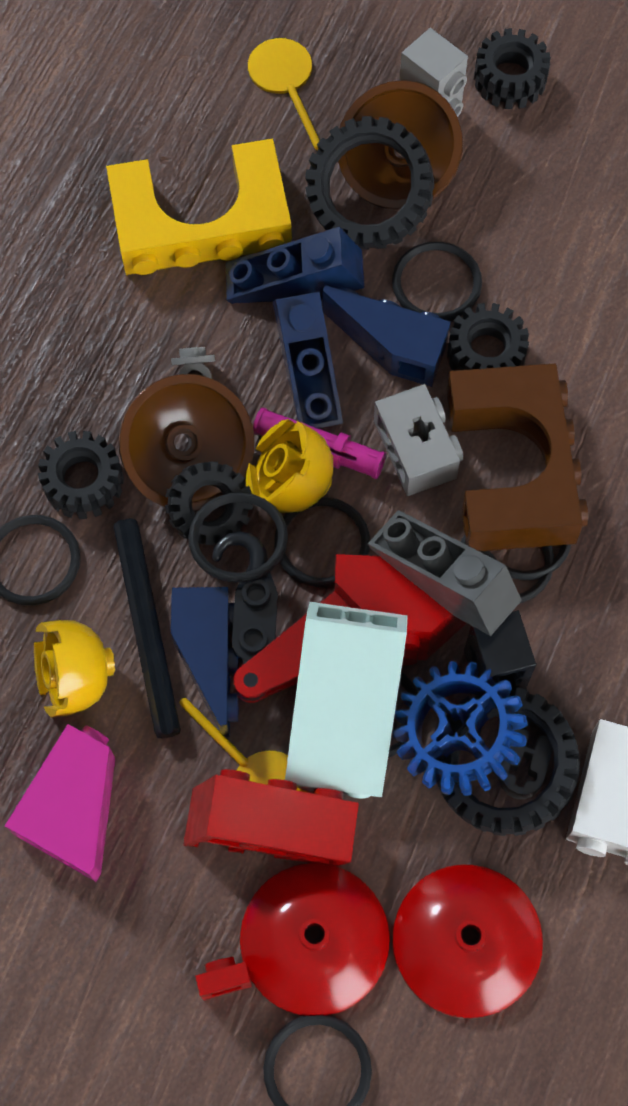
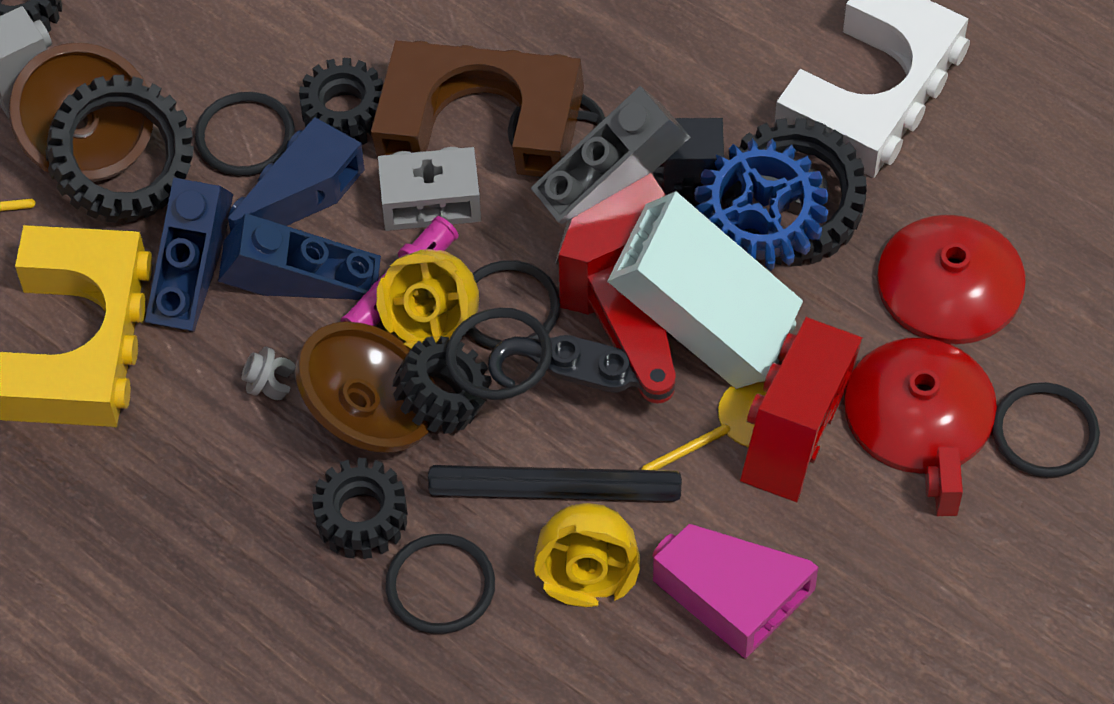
camera: 75 degrees left, 10 degrees down
(203, 639) = (599, 427): dark blue slope -> none

